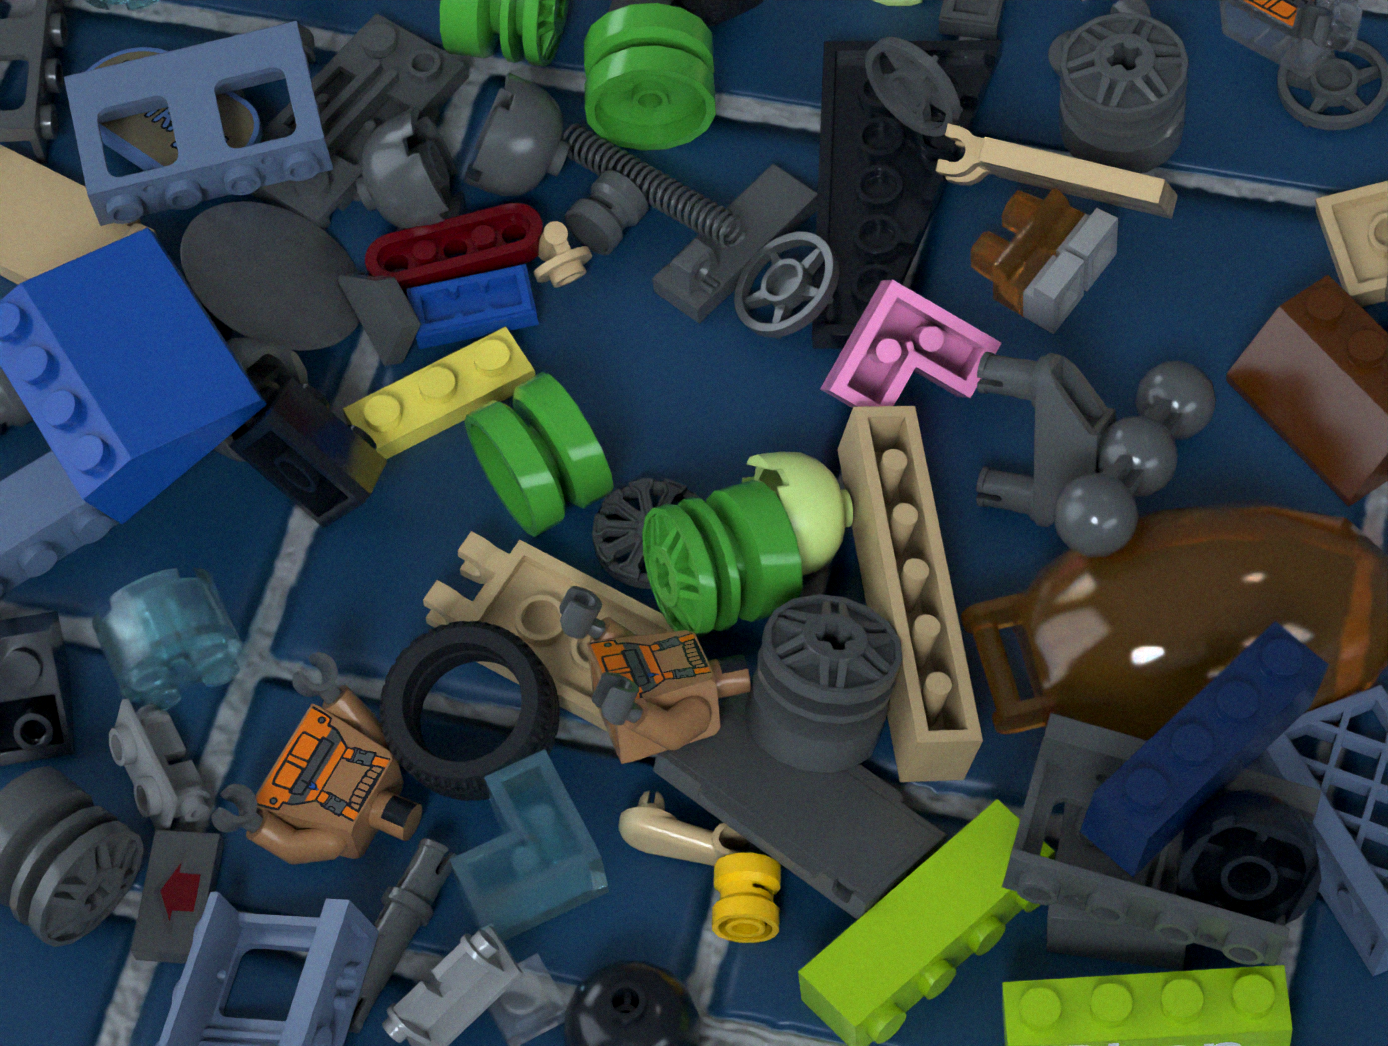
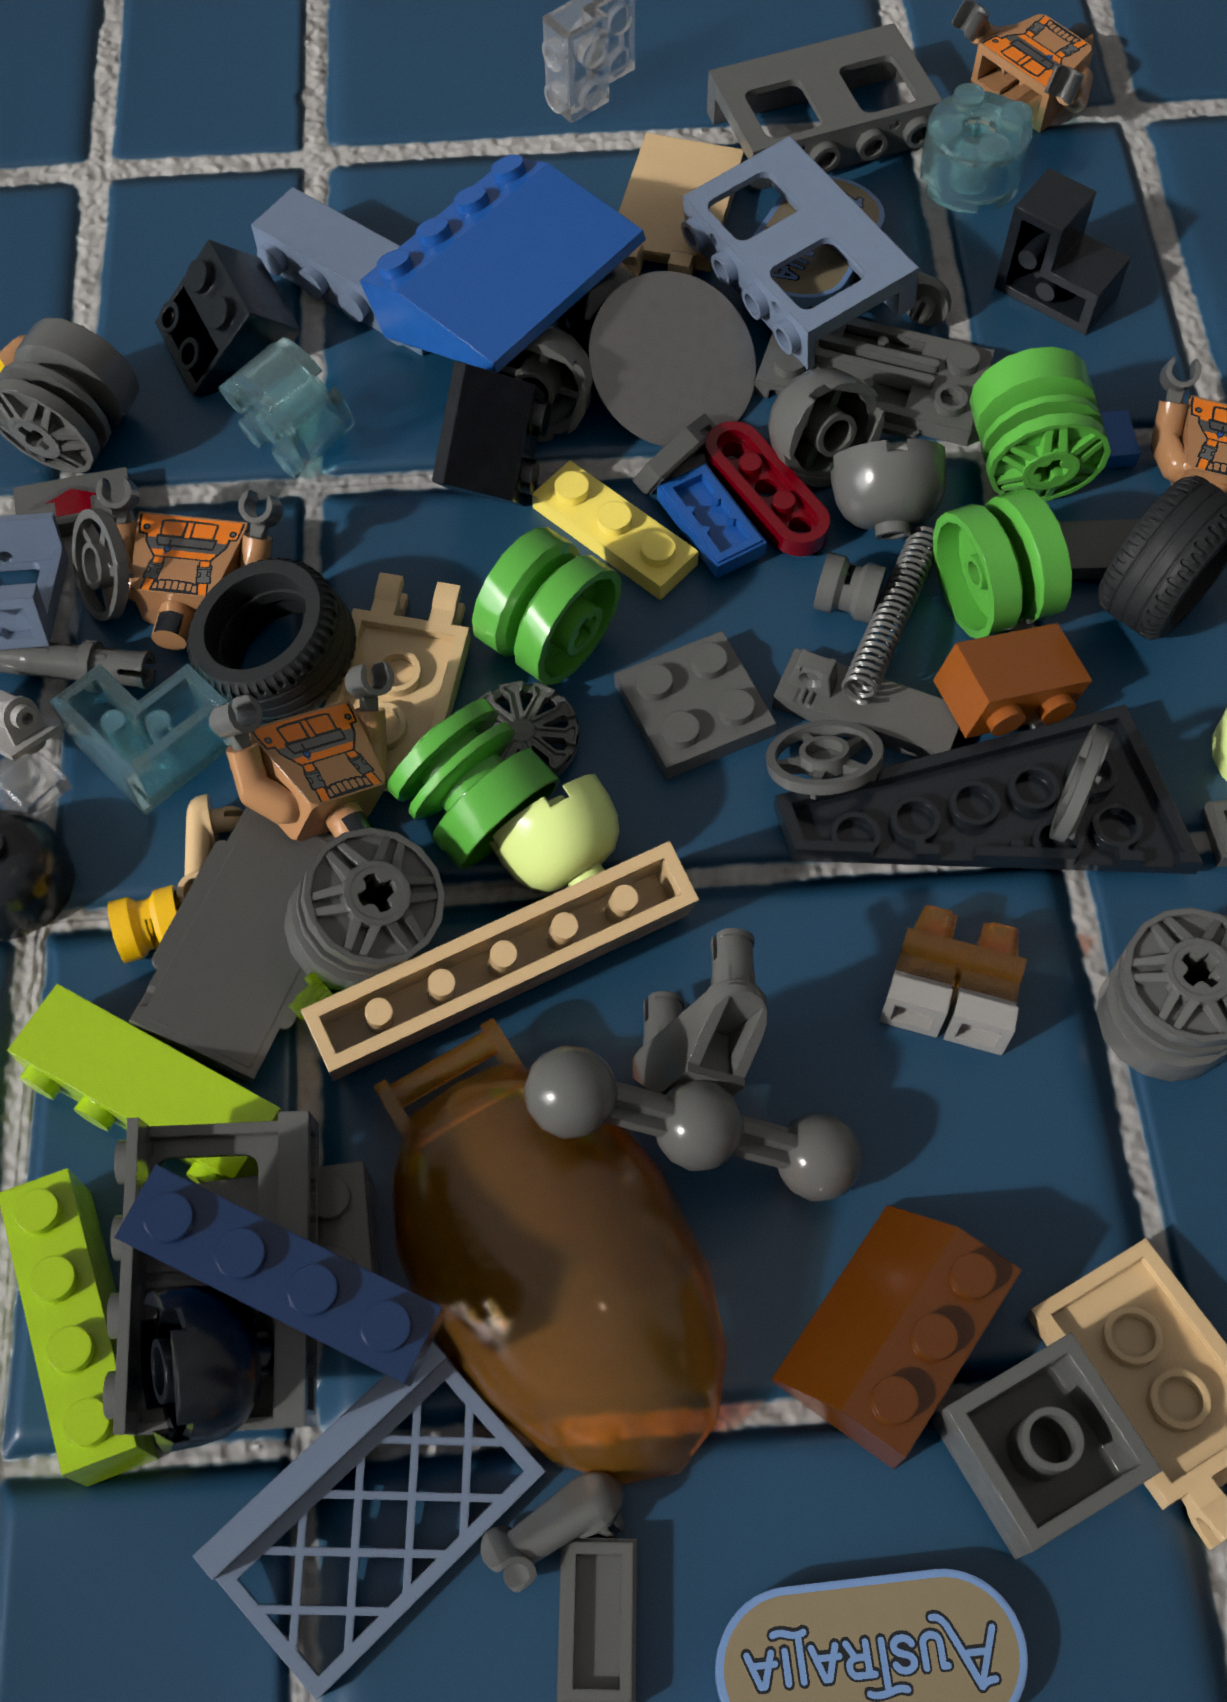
camera: 65 degrees right, 5 degrees up
(144, 745) = (168, 459): light grey hinge -> none
(298, 858) = (100, 564): none -> dark grey wheel
(562, 263) = (784, 571): tan plate -> none
(675, 382) = (694, 704): none -> dark grey plate
(769, 114) = (1012, 680): none -> dark orange brick
(880, 764) = (311, 994): none -> clear neon green piece
(905, 335) = (784, 877): bright pink brick -> none
(1056, 171) = (1047, 963): tan tile -> none

